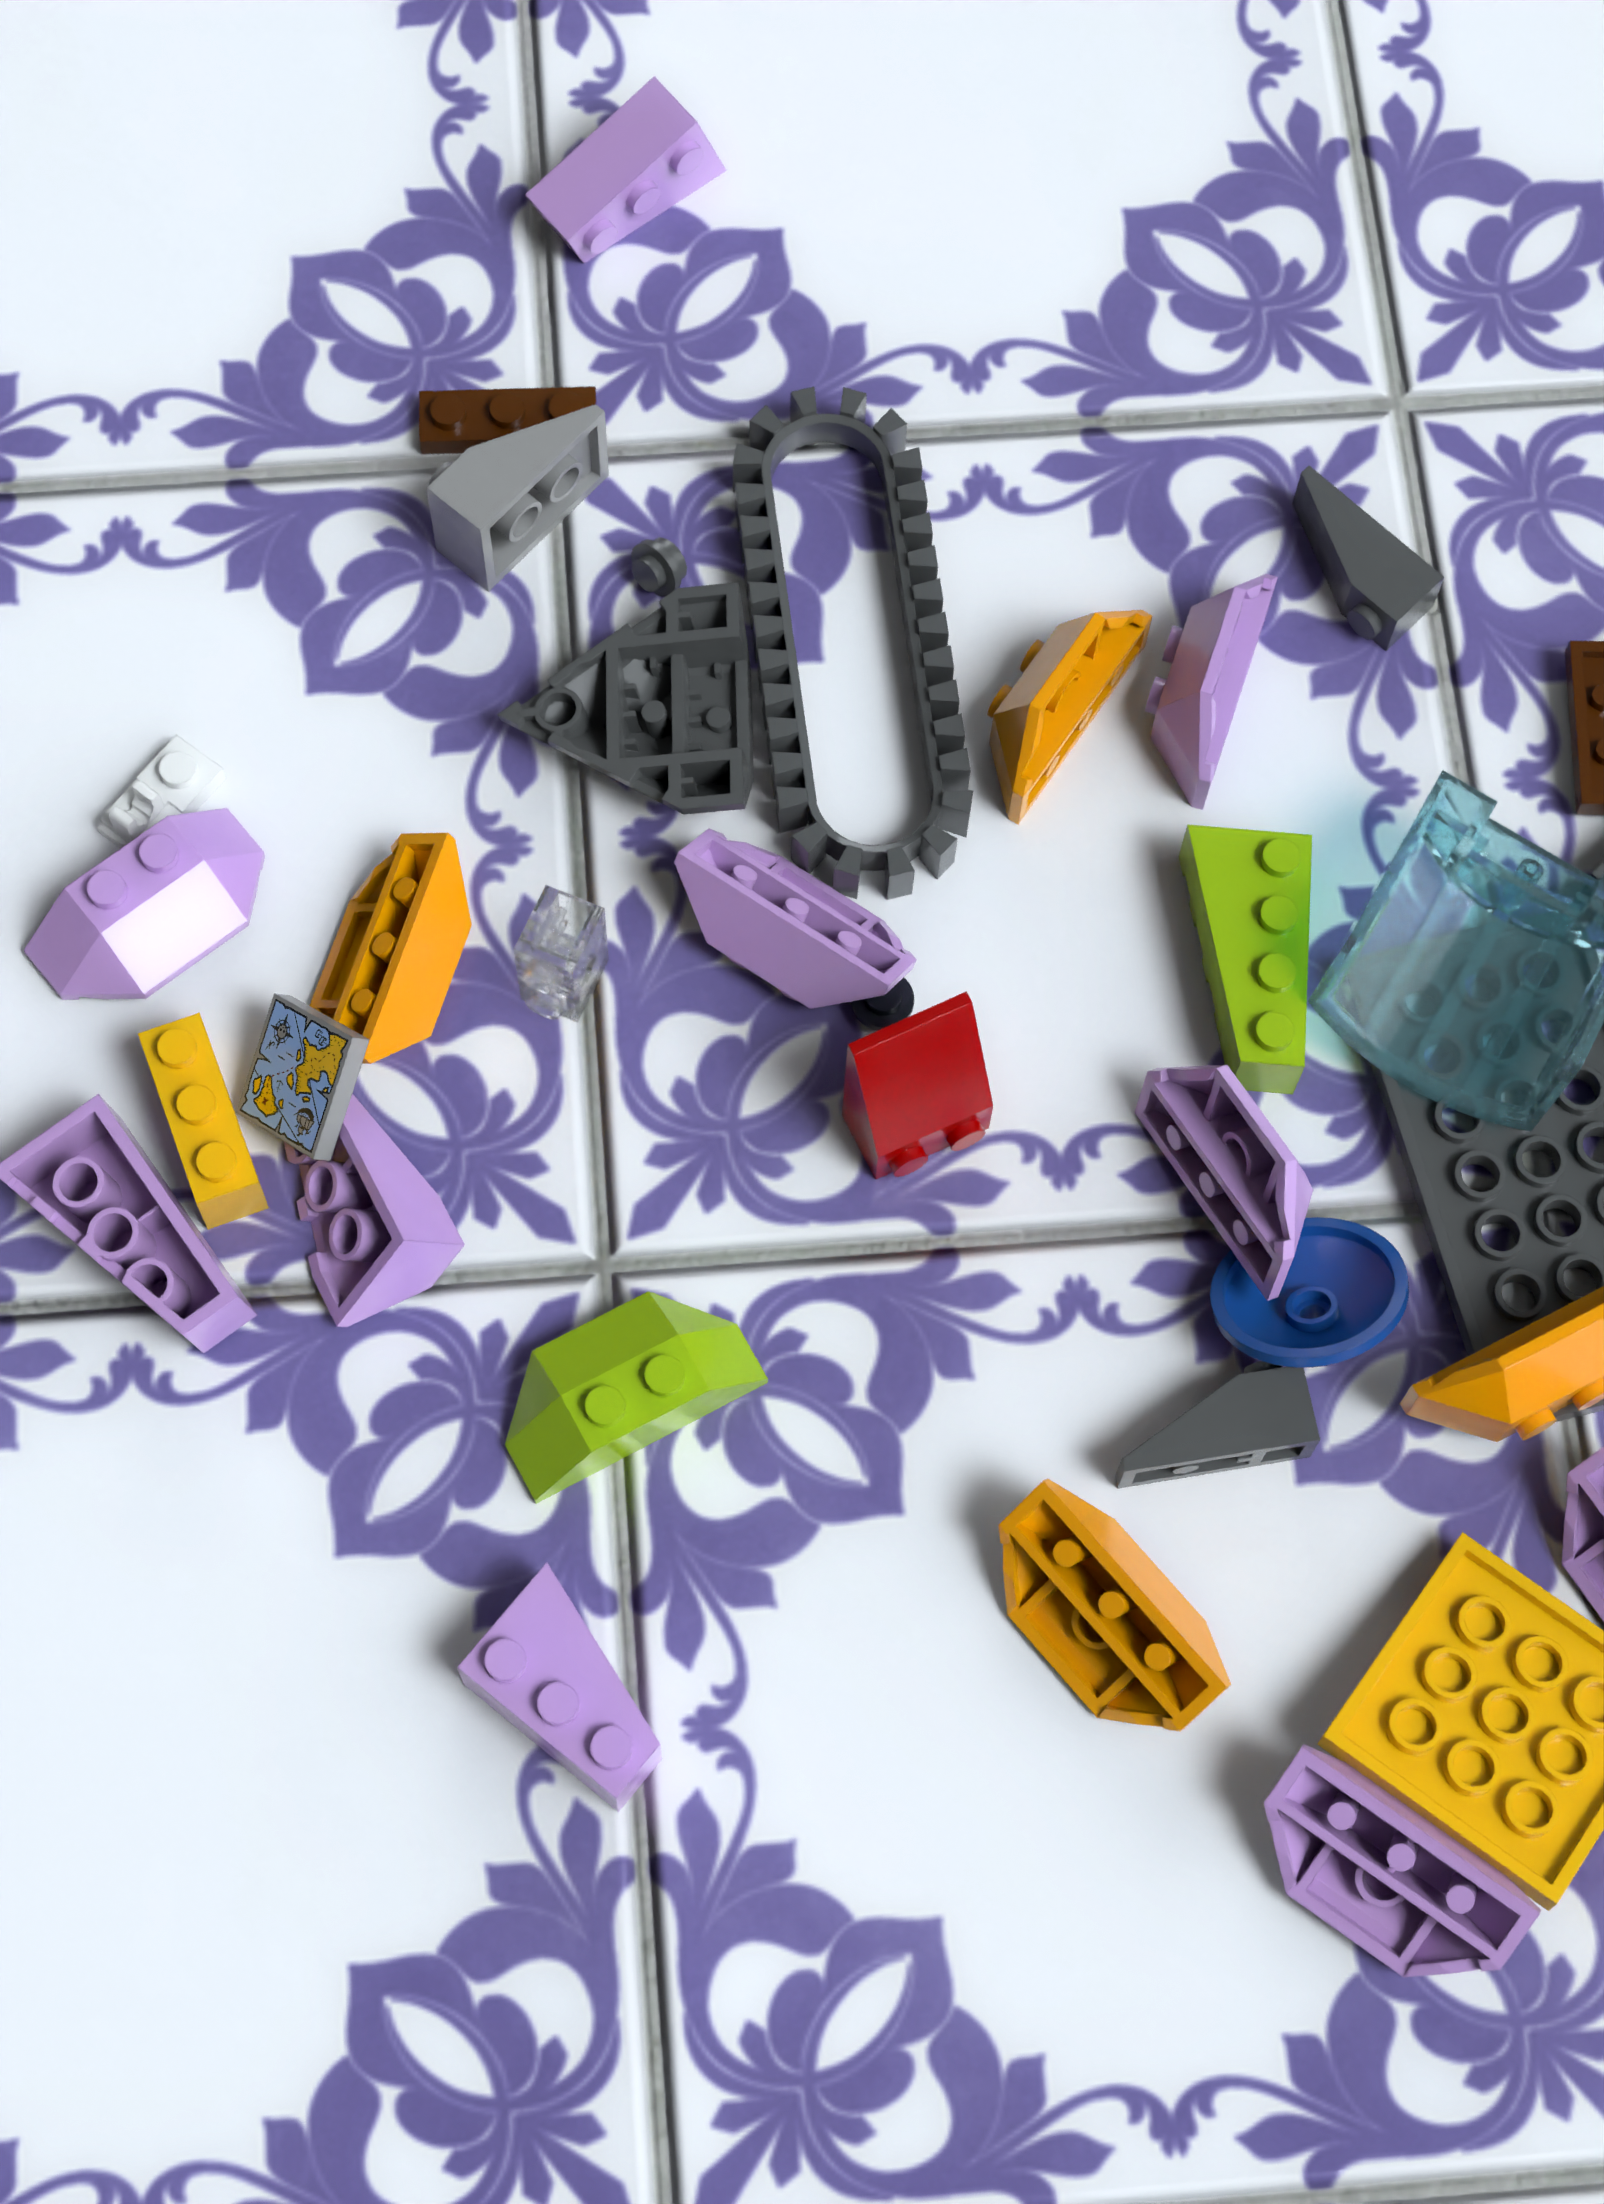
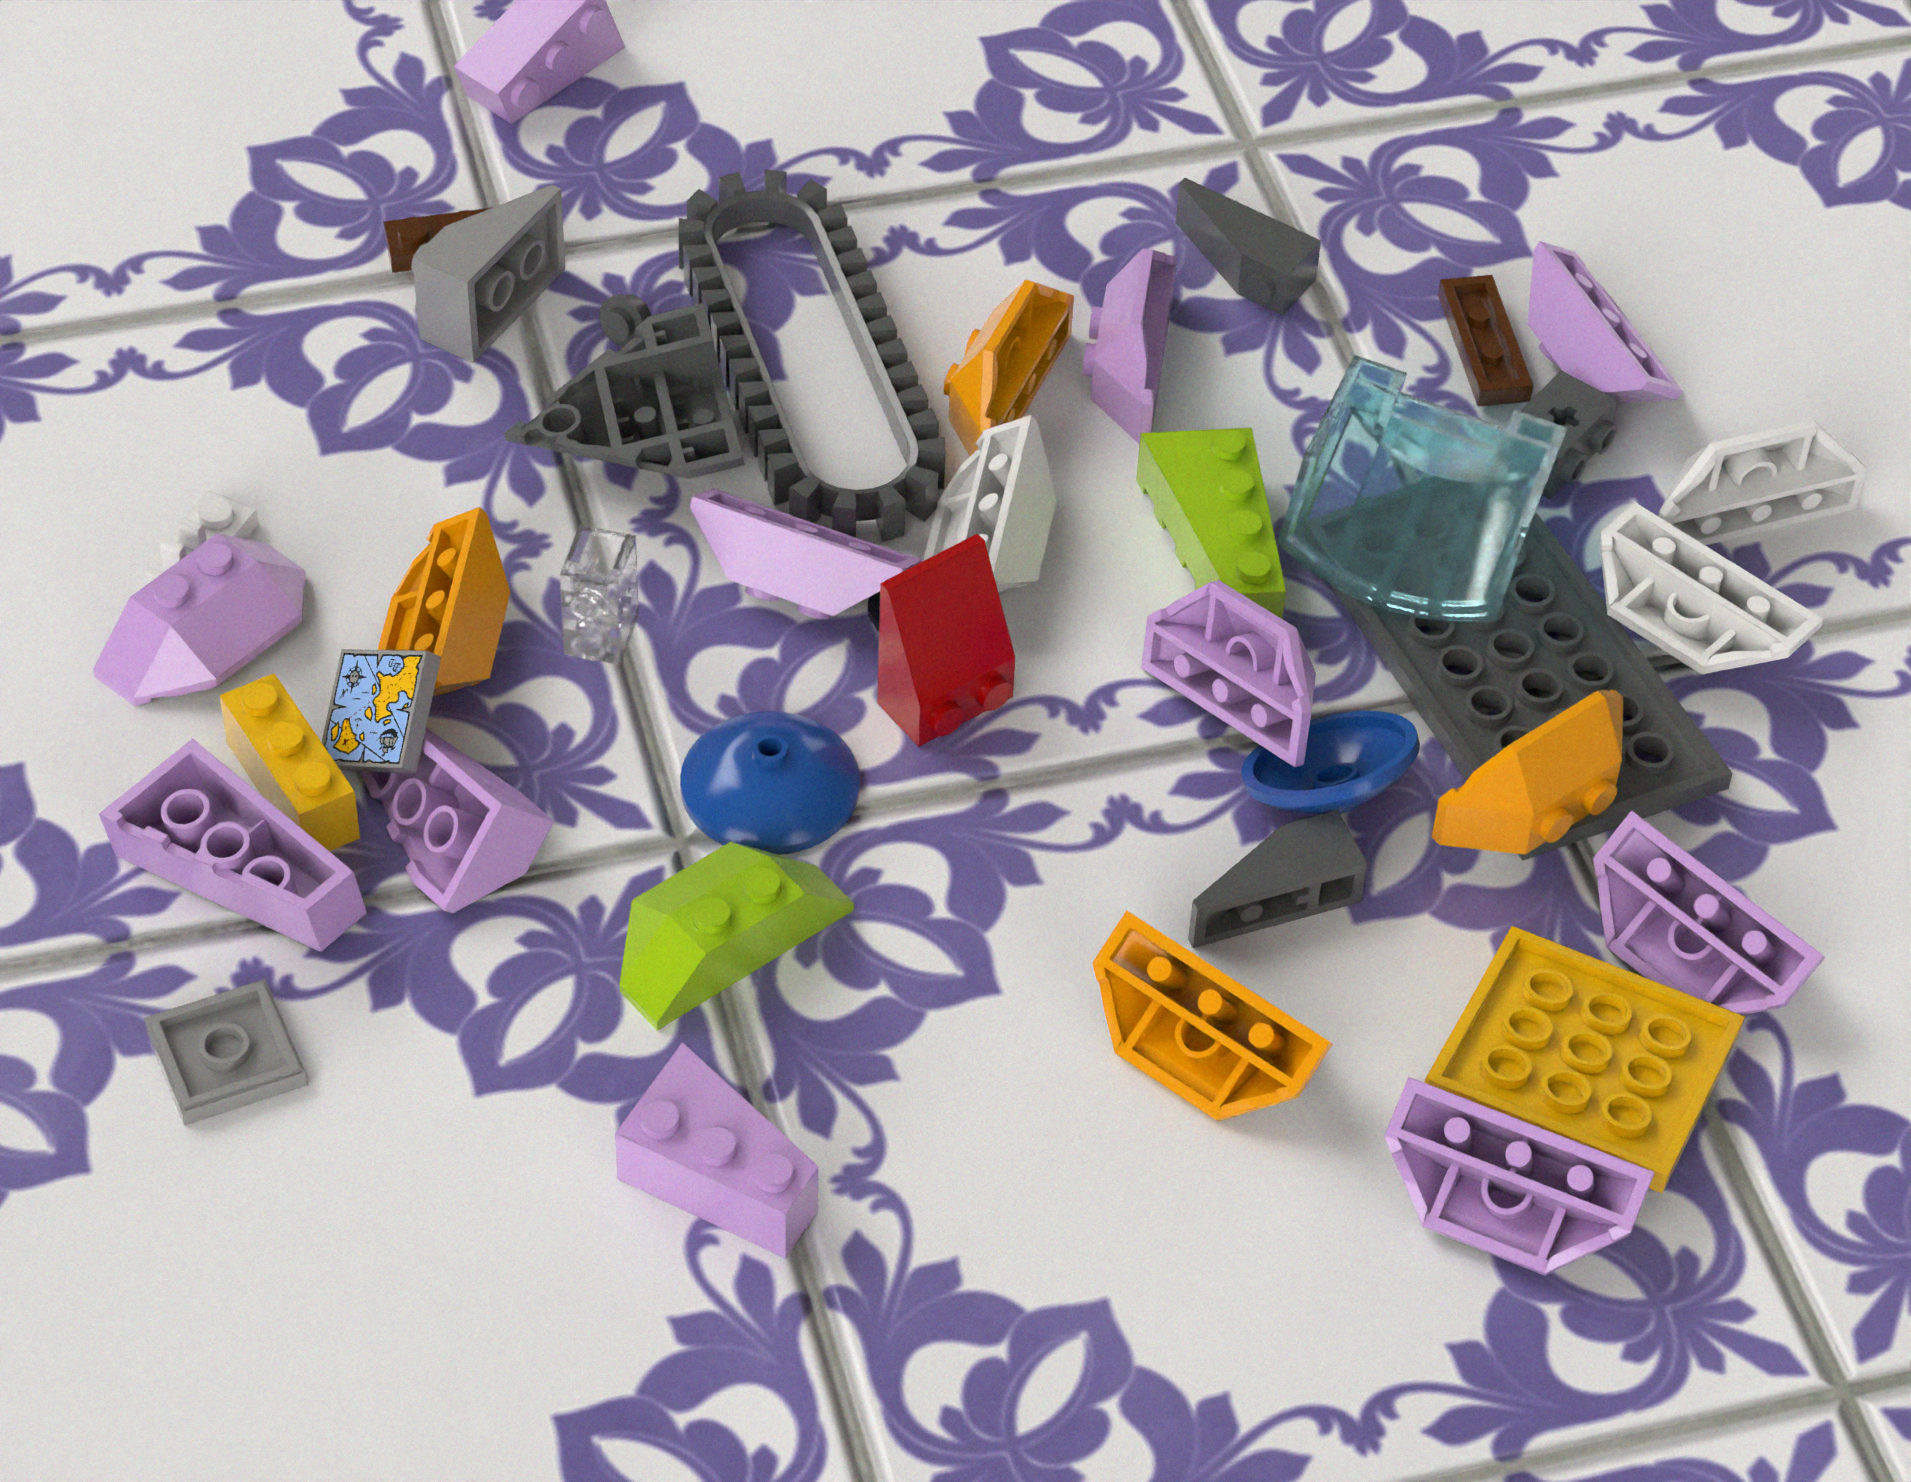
camera: 10 degrees left, 20 degrees down
(86, 1464) = (225, 1052): none -> light grey tile
(713, 1242) = (770, 782): none -> blue dish
(1005, 906) = (1004, 498): none -> white wedge

